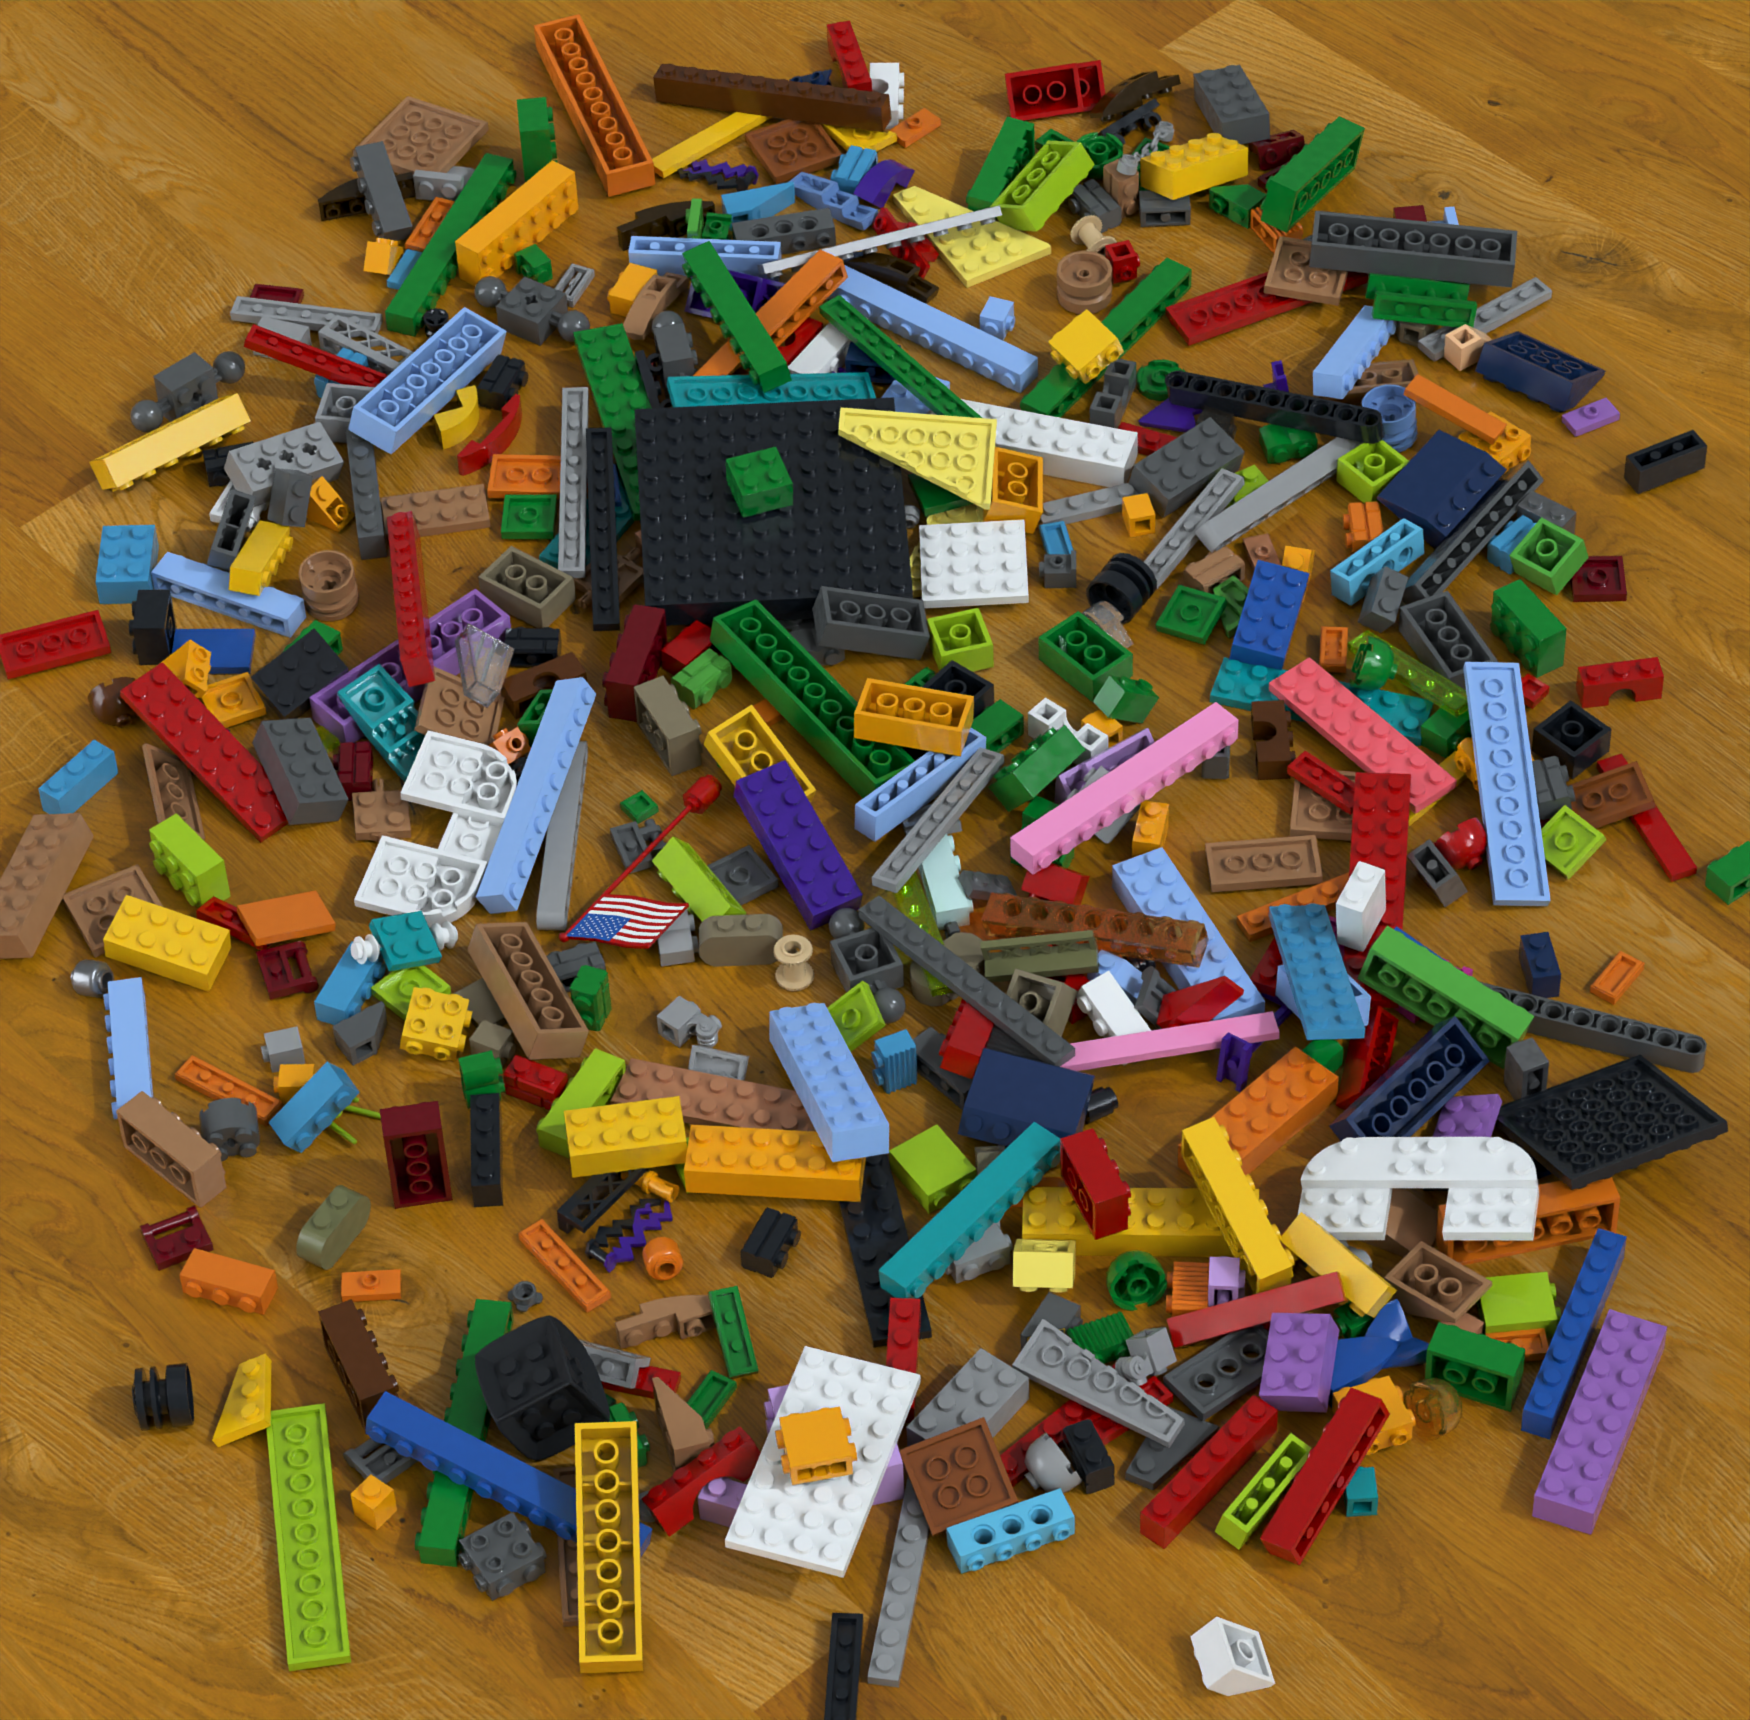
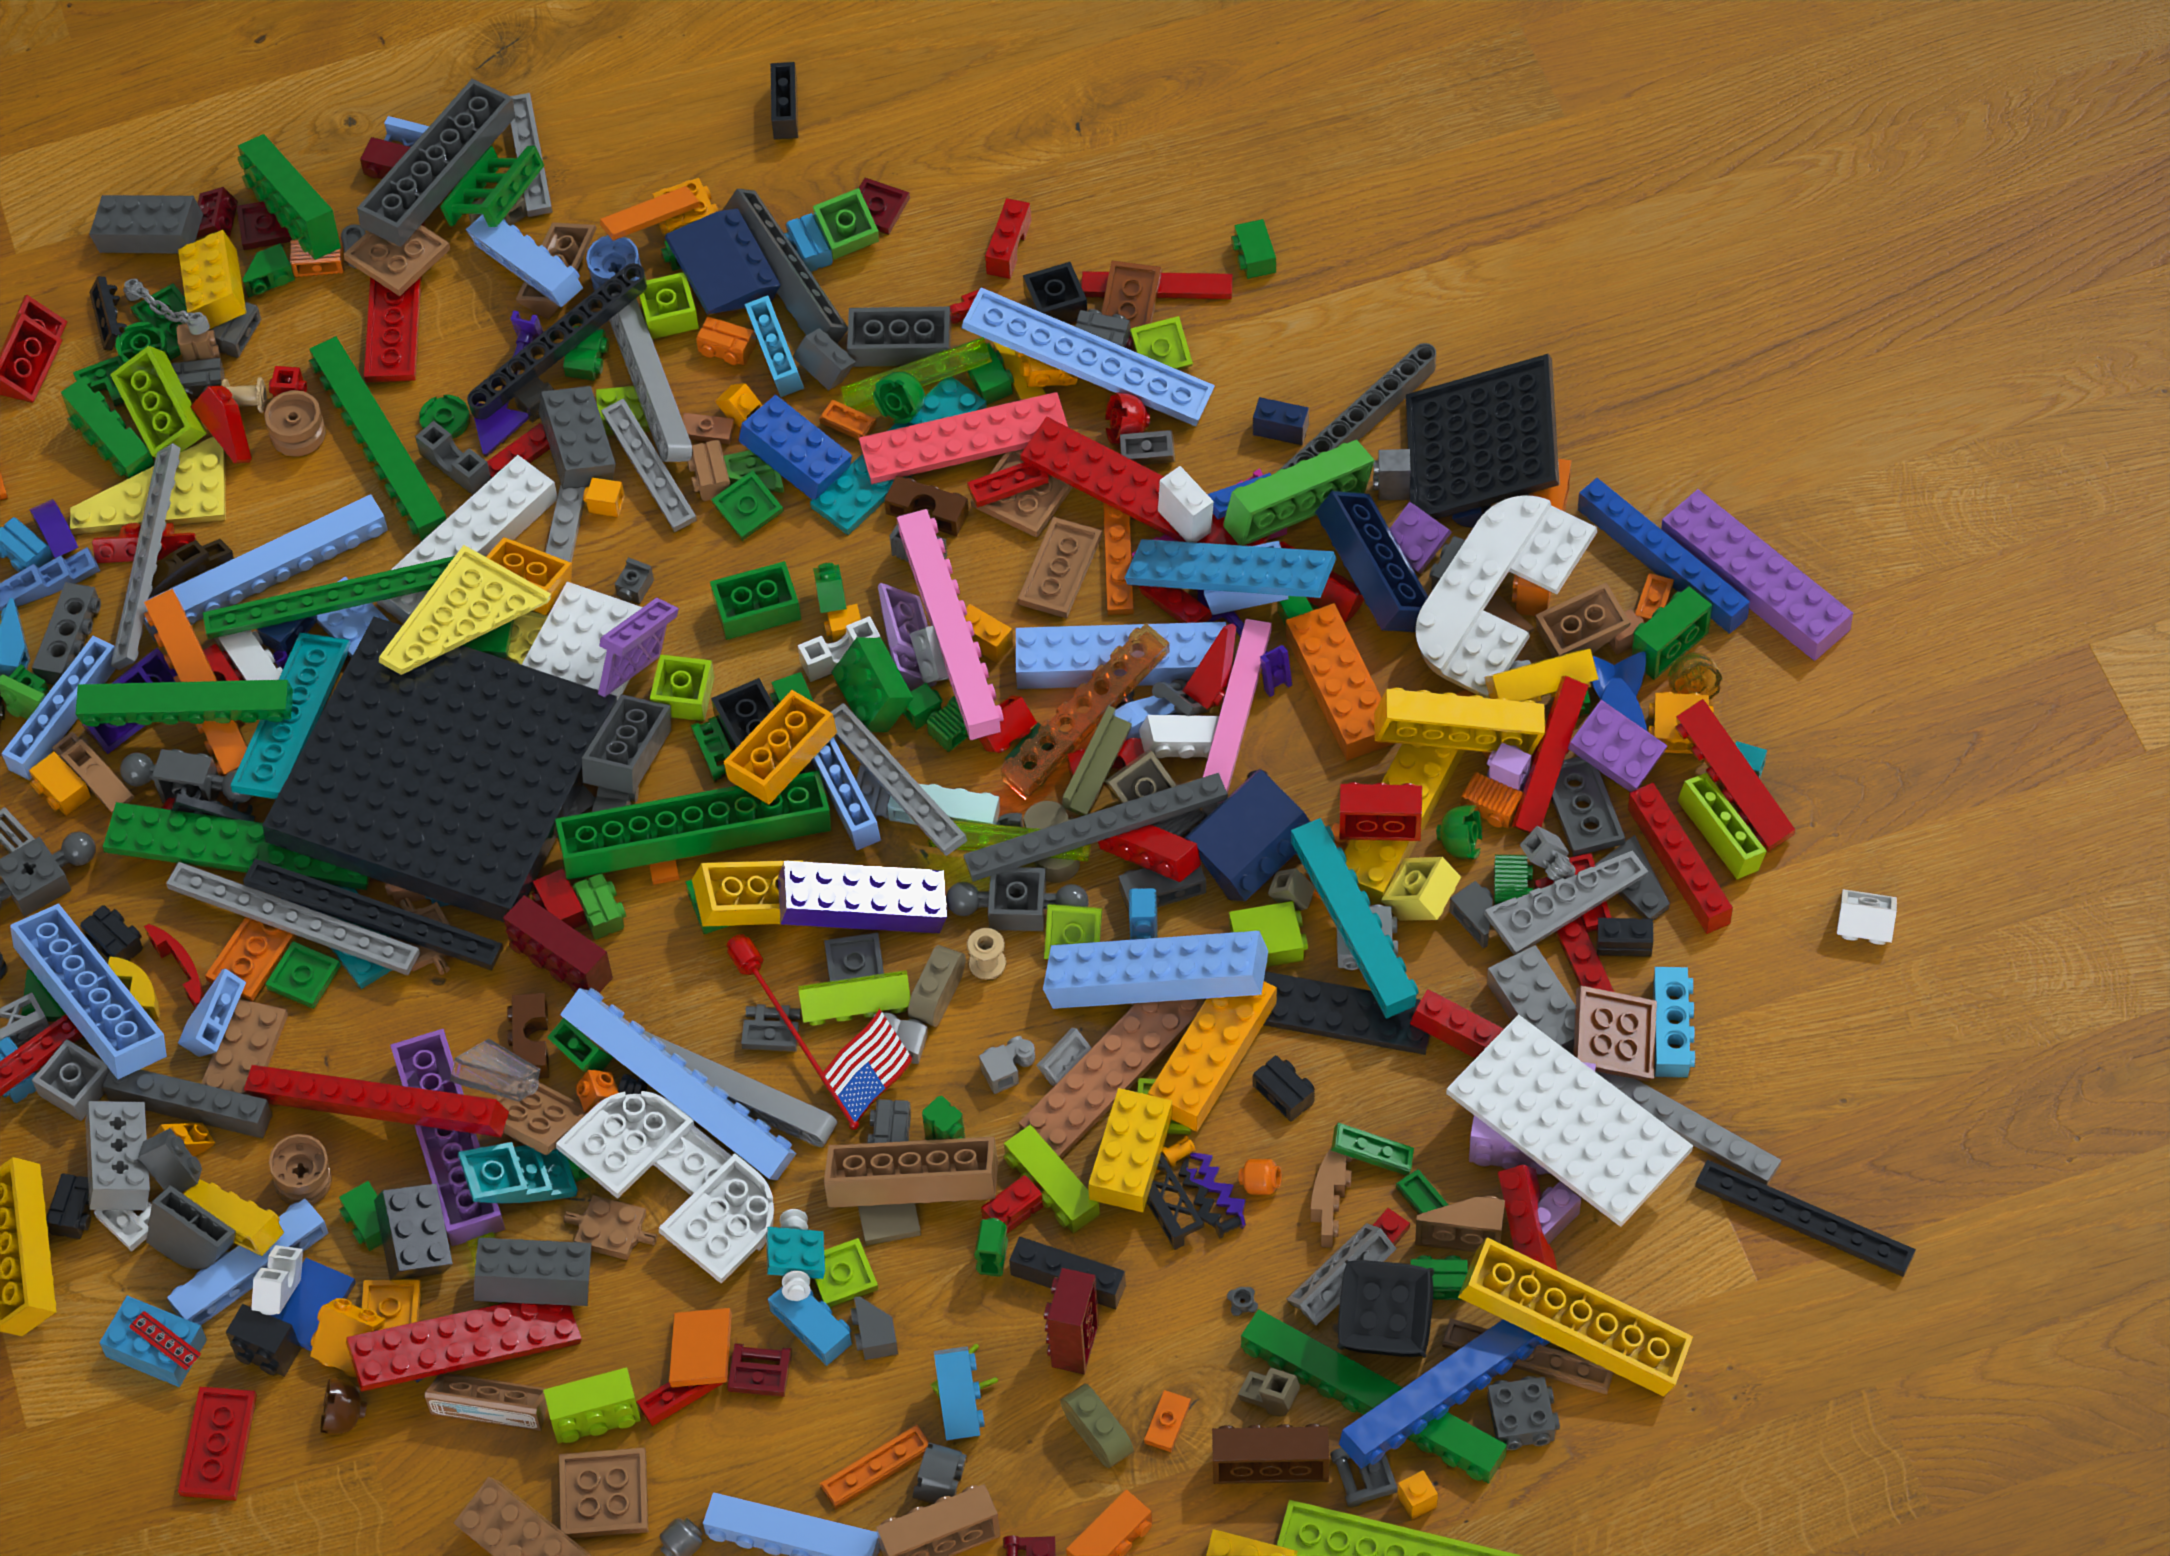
camera: 65 degrees left, 10 degrees up
(78, 779) = (419, 1474): dark azure brick -> none
(120, 562) = (165, 1340): none -> red sticker
(167, 943) = (682, 1456): yellow brick -> none
(186, 599) = (278, 1281): none -> white arch
(283, 1048) = (858, 1401): light grey brick -> none
(292, 1079) = (906, 1404): light orange brick -> none
(354, 767) = (544, 1225): dark red brick -> none
(429, 1347) = (1273, 1391): none -> dark tan brick
(435, 1024) = (902, 1264): yellow brick -> none
(456, 471) = (212, 1015): none -> light blue slope
(495, 1038) = (945, 1227): dark tan brick -> none
(527, 588) = (404, 1005): dark tan brick -> none
(533, 645) = (478, 1023): black brick -> none
(564, 1265) = (1221, 1258): orange tile -> none
(639, 807) = (720, 1013): green tile -> none
(668, 725) = (650, 950): dark tan brick -> none
(759, 482) = (429, 756): green brick -> none
(816, 1445) = (1572, 1111): light orange brick -> none
(973, 567) = (634, 644): none -> medium lavender fence
(980, 885) = (978, 775): flat silver plate -> none
(997, 317) = (290, 508): light blue brick -> none
(1049, 1466) = (1625, 967): light grey cylinder -> none
(1052, 236) = (223, 420): none -> red slope
(1055, 538) = (595, 572): dark azure tile -> none
(1085, 347) = (399, 448): yellow brick -> none
(1108, 619) = (718, 567): clear brick -> none
(1123, 583) = (695, 541): black wheel -> none
(1131, 92) = (71, 294): dark brown slope -> none
(1464, 346) = (560, 180): light nougat slope -> none
(1519, 1304) = (1623, 573): lime brick -> none
(1528, 628) = (918, 272): green brick -> none
(1537, 506) = (793, 205): flat silver brick -> none
(1538, 370) = (616, 142): dark blue slope -> none
(1590, 417) = (689, 131): medium lavender plate -> none
(1617, 977) = (1313, 377): orange tile -> none

